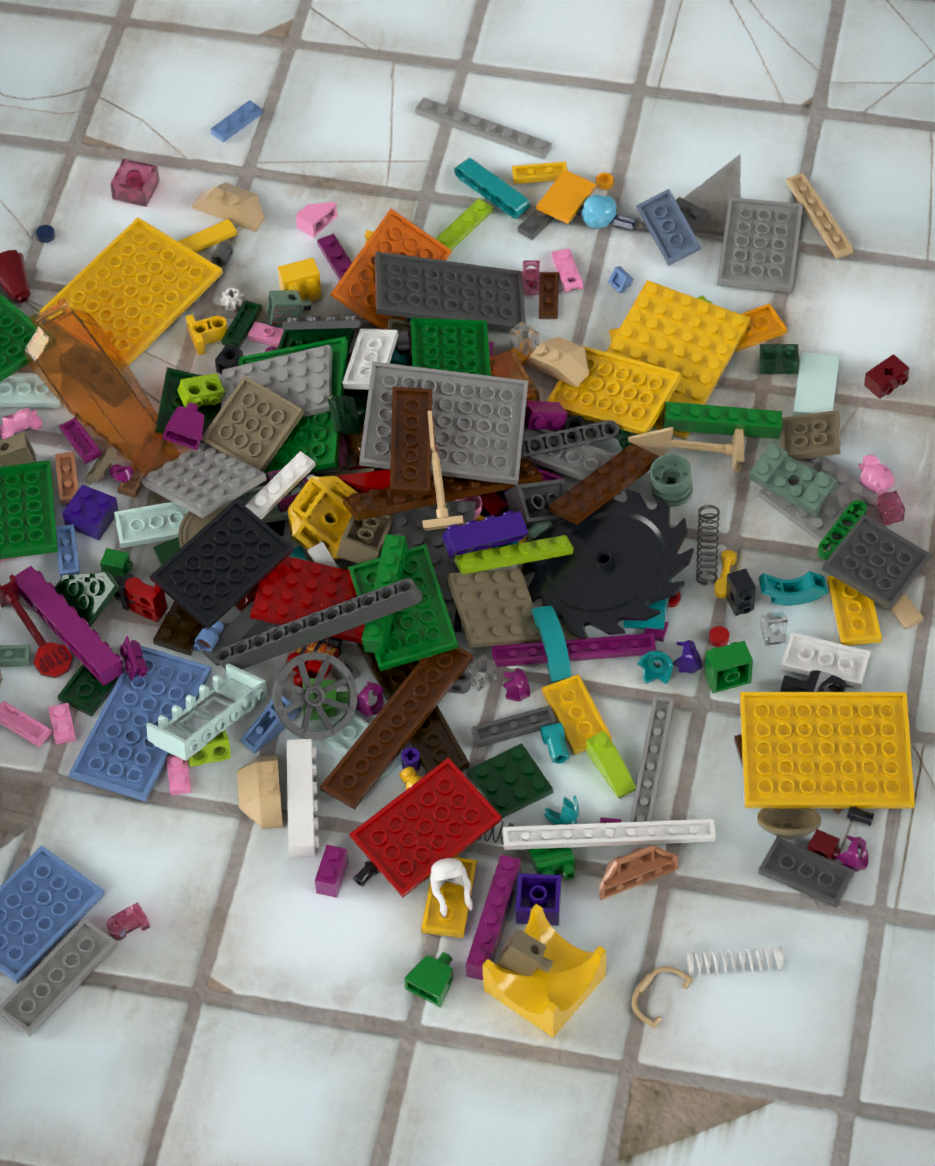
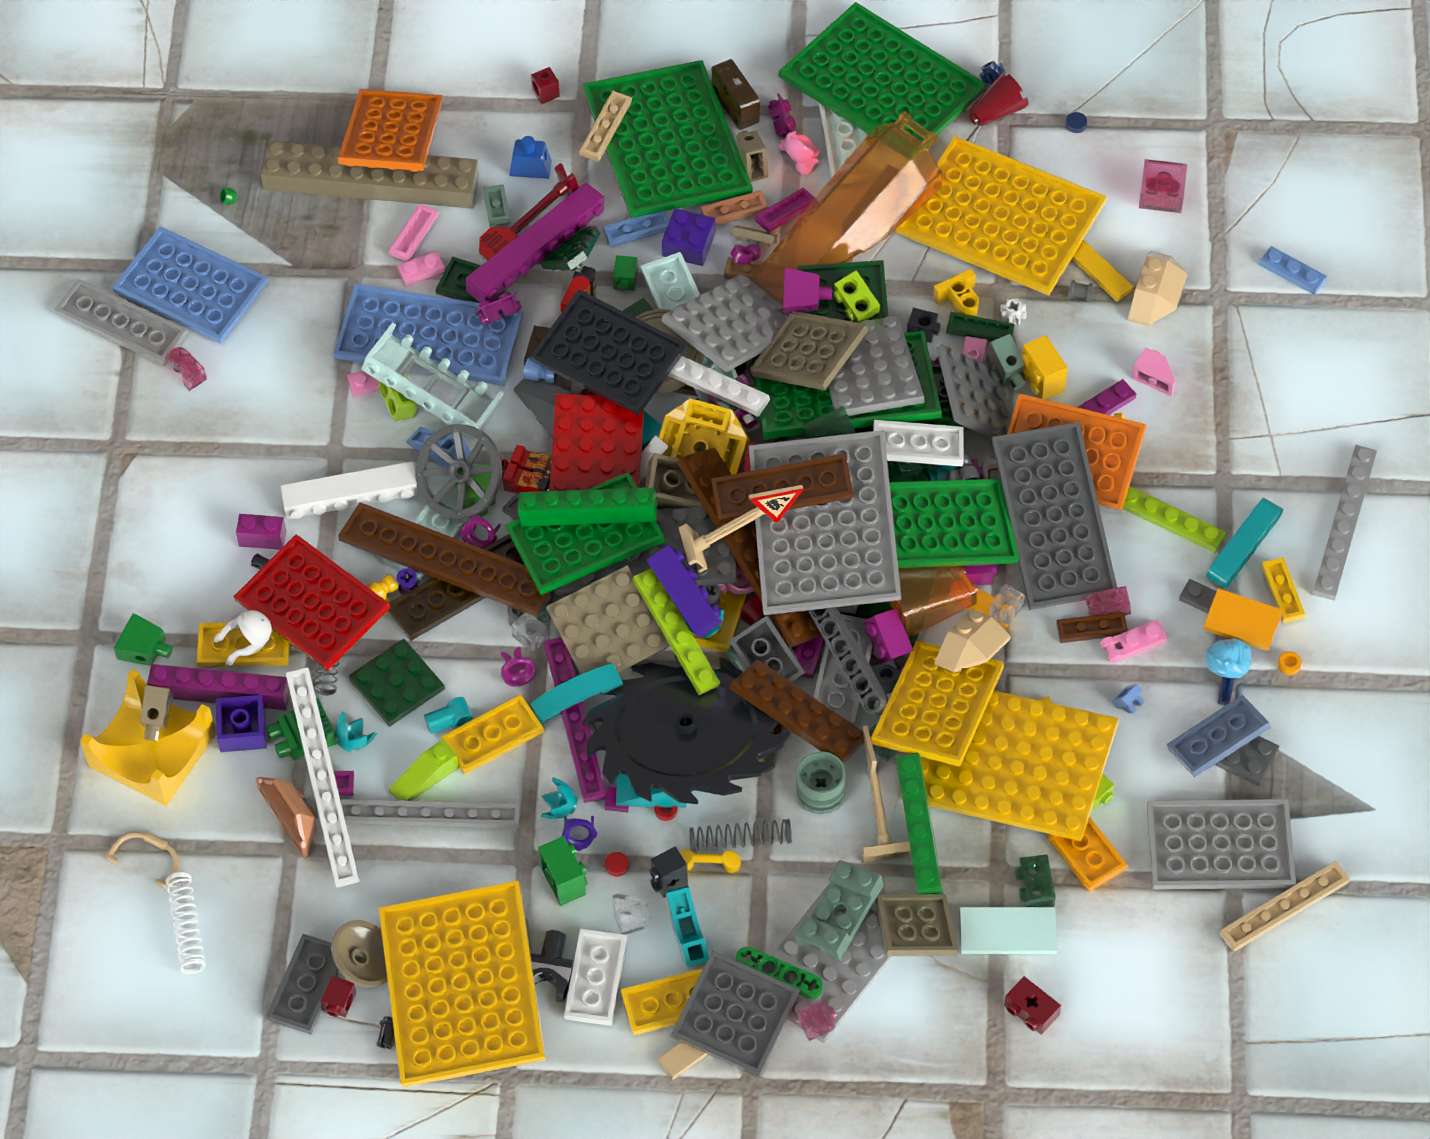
camera: 80 degrees right, 5 degrees up
(260, 791) = (358, 452): tan wedge -> none
(320, 625) = (535, 453): dark grey beam -> none
(512, 726) = (465, 674): dark grey plate -> none
(851, 857) = (322, 1039): magenta piece -> none
(875, 475) = (867, 1004): bright pink hair -> none

